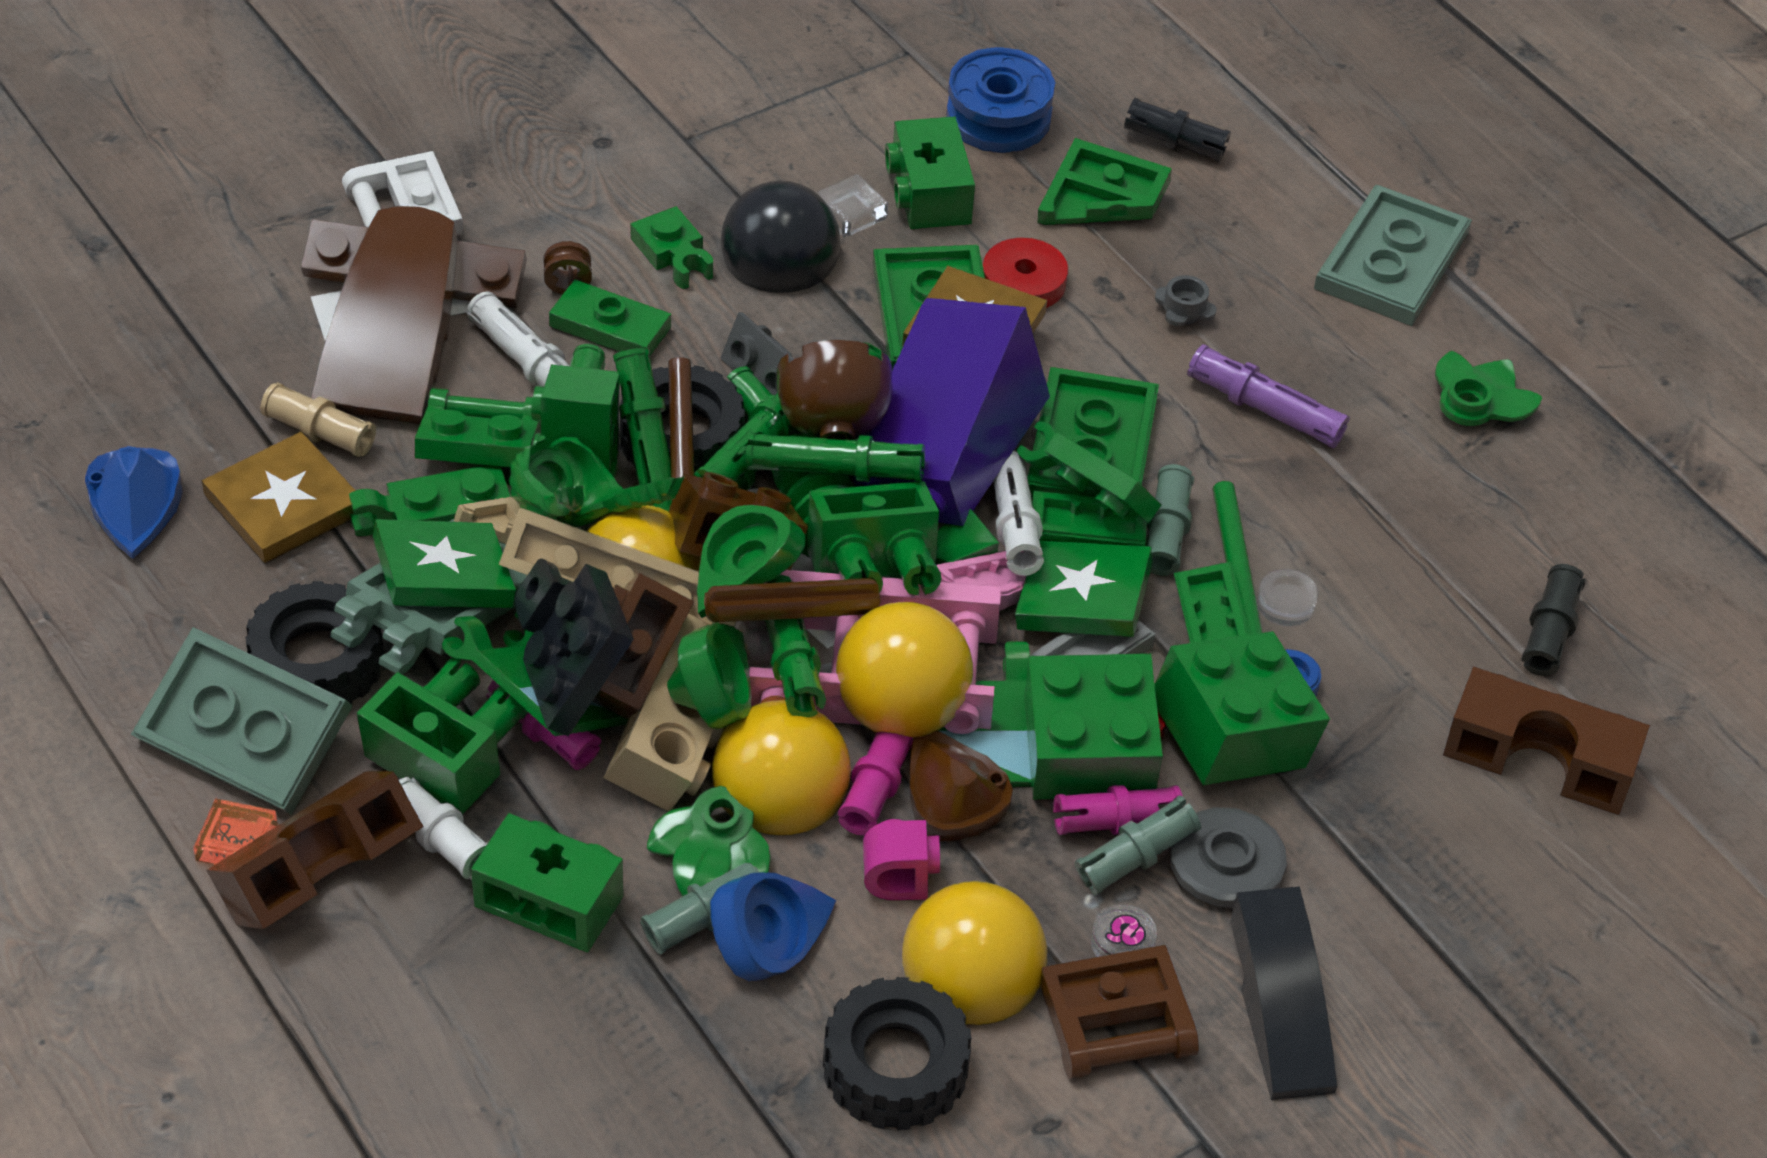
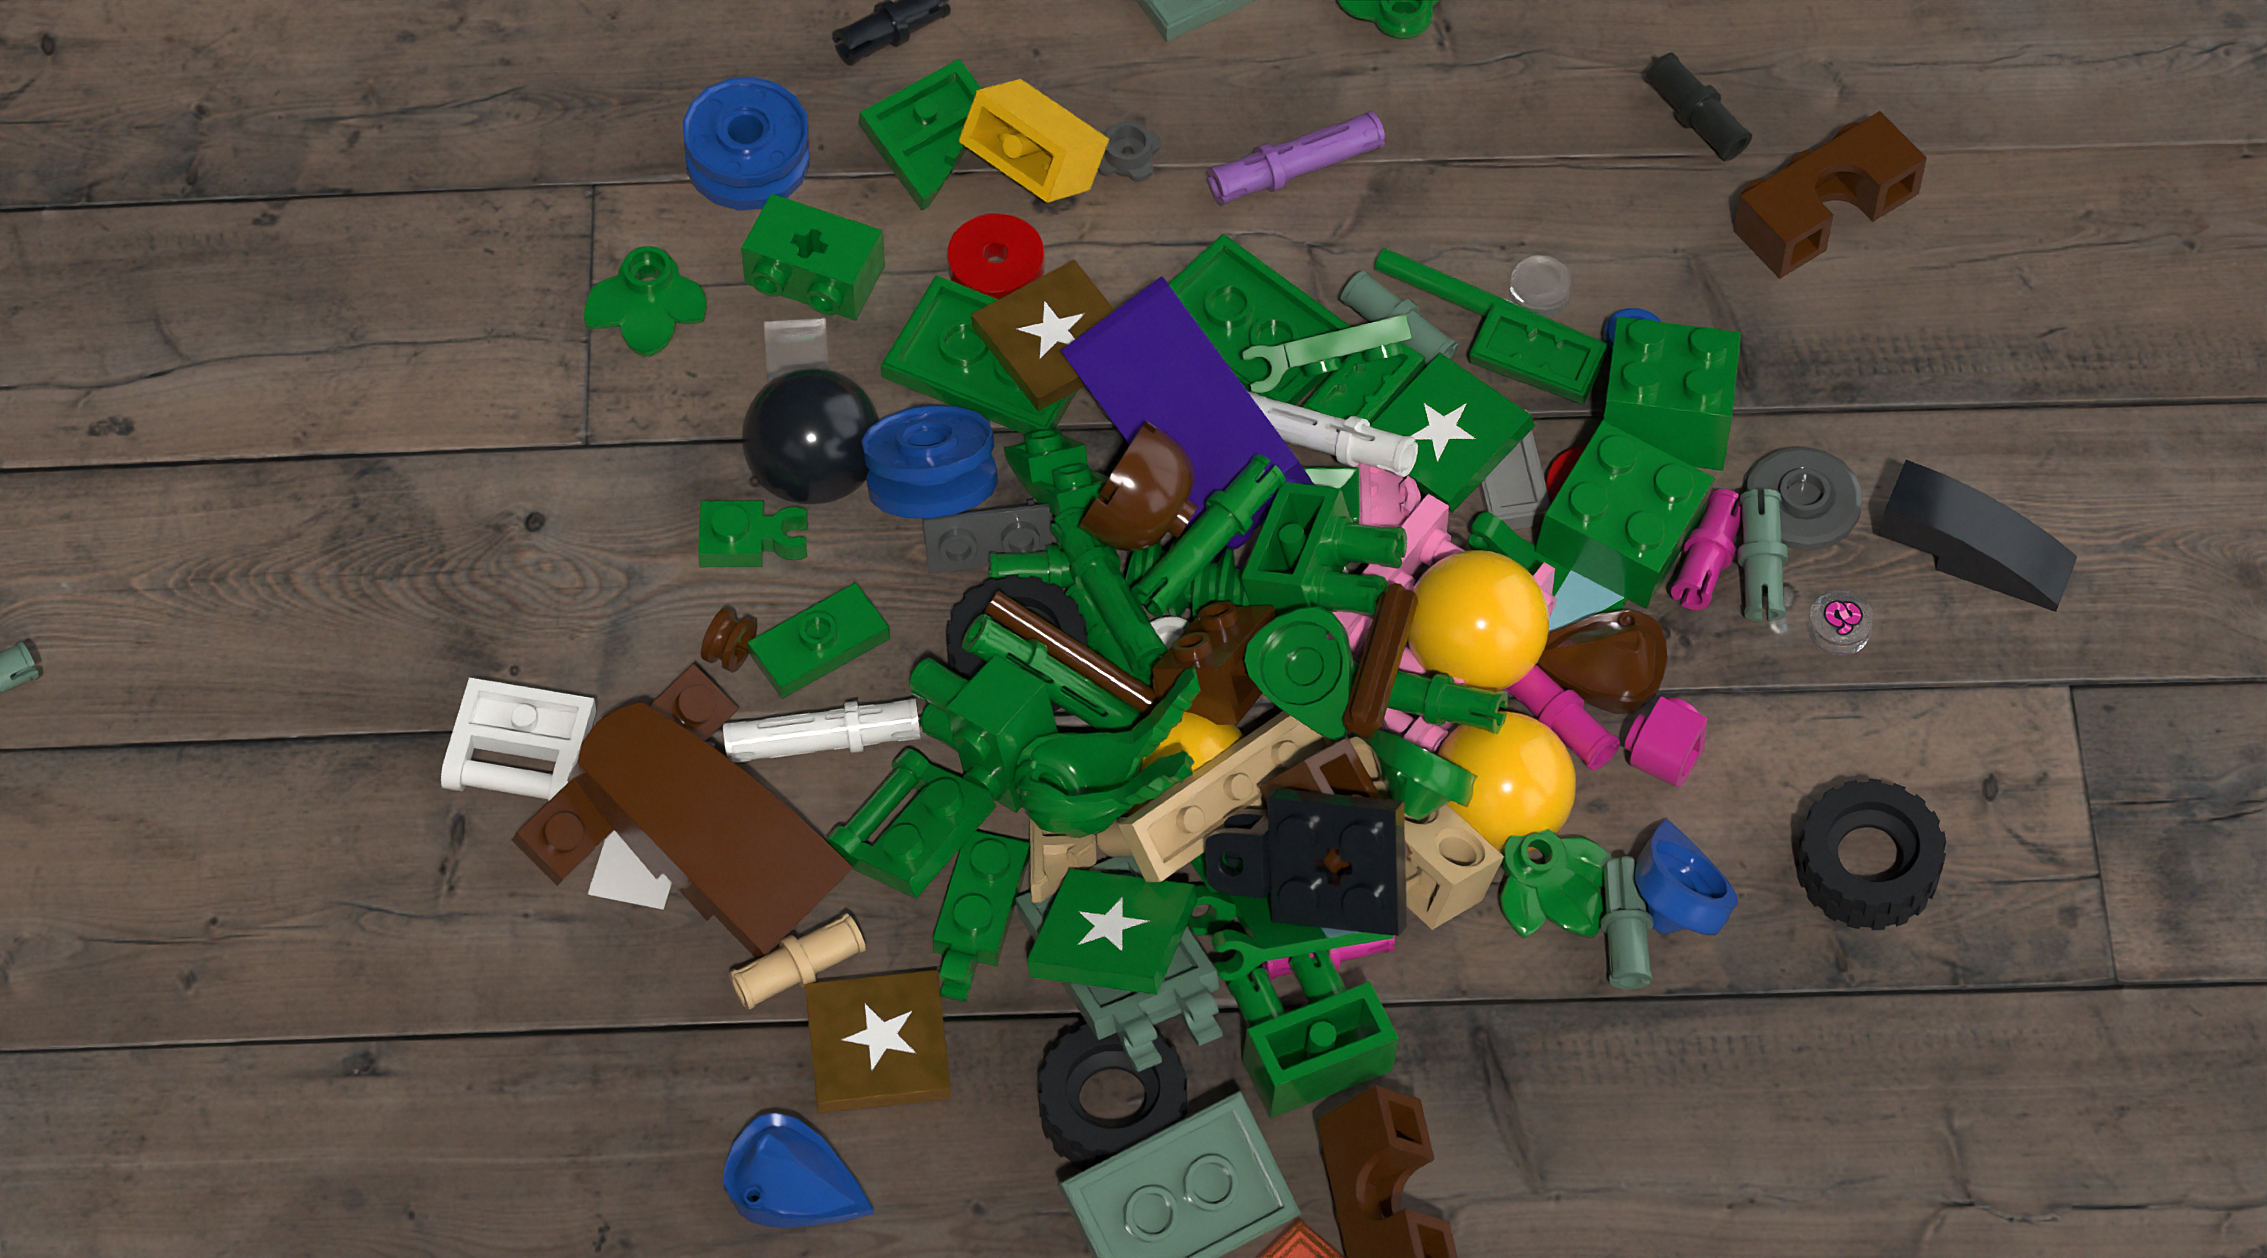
camera: 55 degrees left, 10 degrees up
(443, 829) = (1432, 1084): white pin -> none
(548, 882) = (1514, 1059): green brick -> none
(795, 295) = (930, 461): none -> blue wheel
(826, 111) = (645, 308): none -> green plate
(978, 949) = (1796, 739): yellow piece -> none
(1115, 992) = (1900, 661): reddish brown plate -> none
(1135, 236) = (1033, 140): none -> yellow brick

